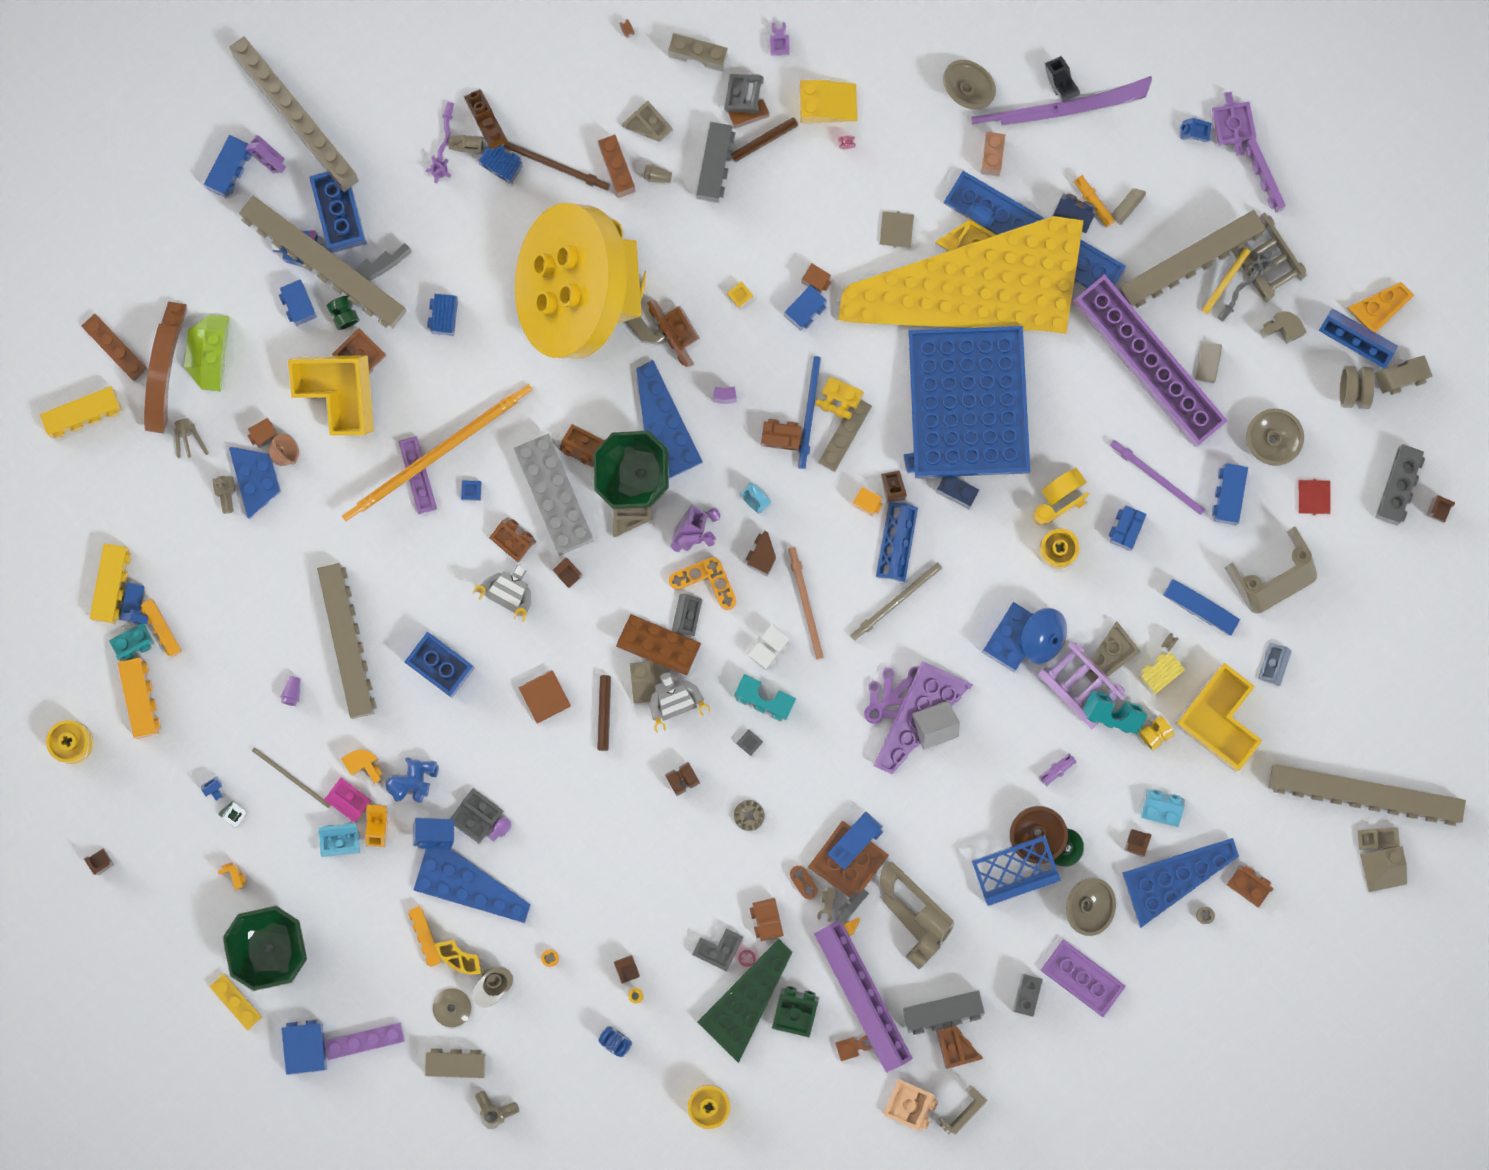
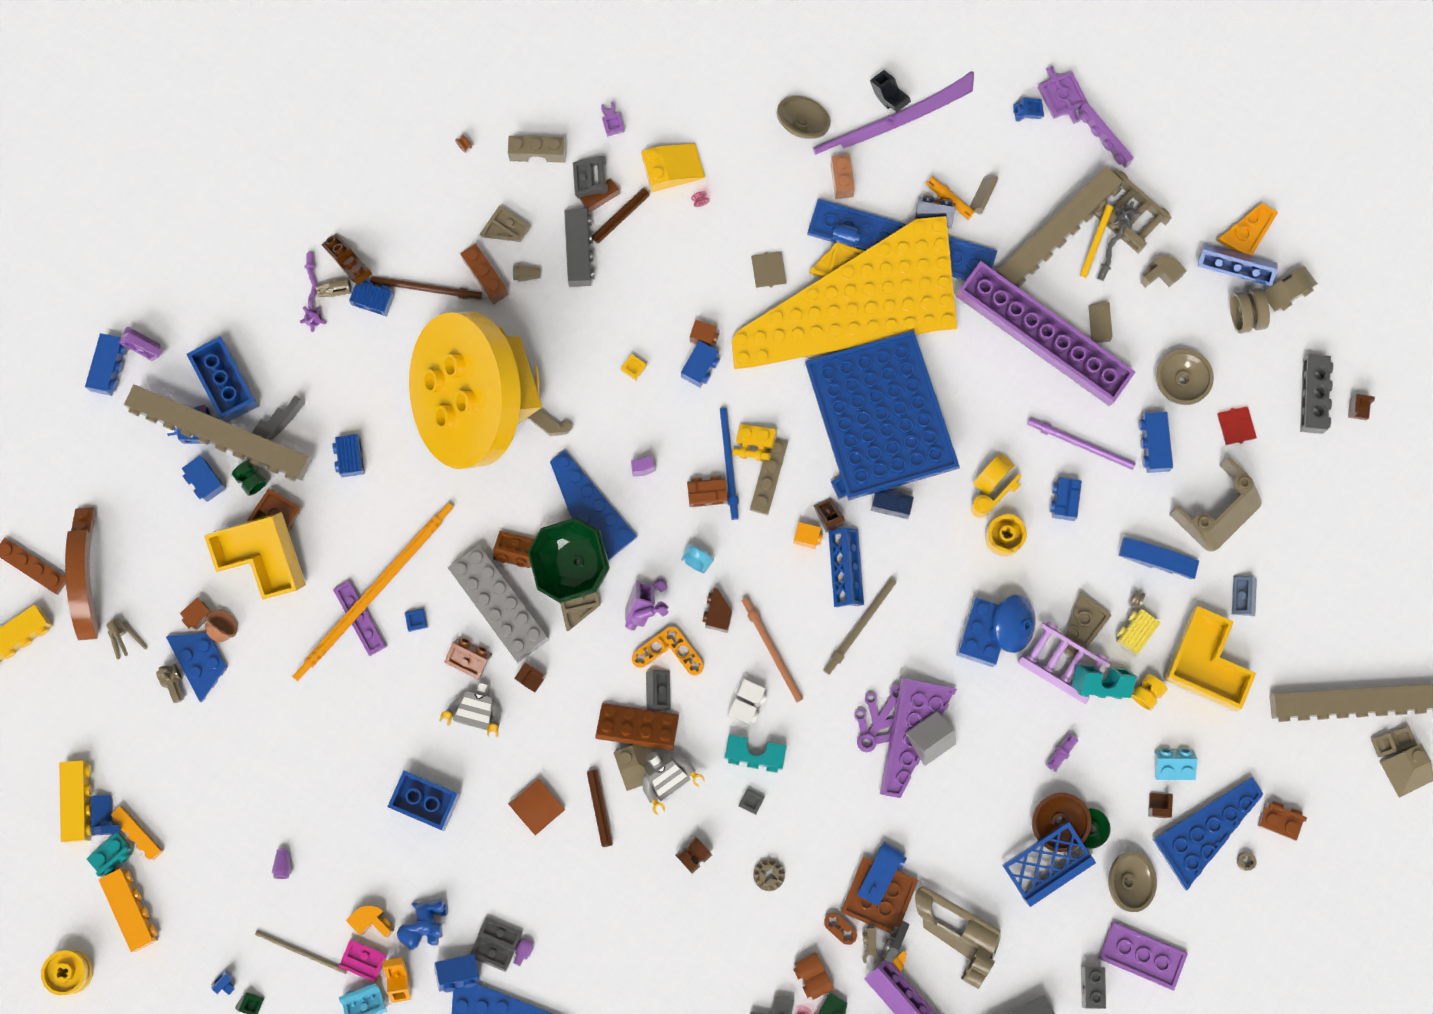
camera: 10 degrees left, 5 degrees down
(207, 351) = (124, 548): lime wedge -> none
(294, 114) = (158, 298): dark tan brick -> none
(345, 640) = (325, 800): dark tan brick -> none
(677, 328) = (581, 414): dark orange bracket -> none

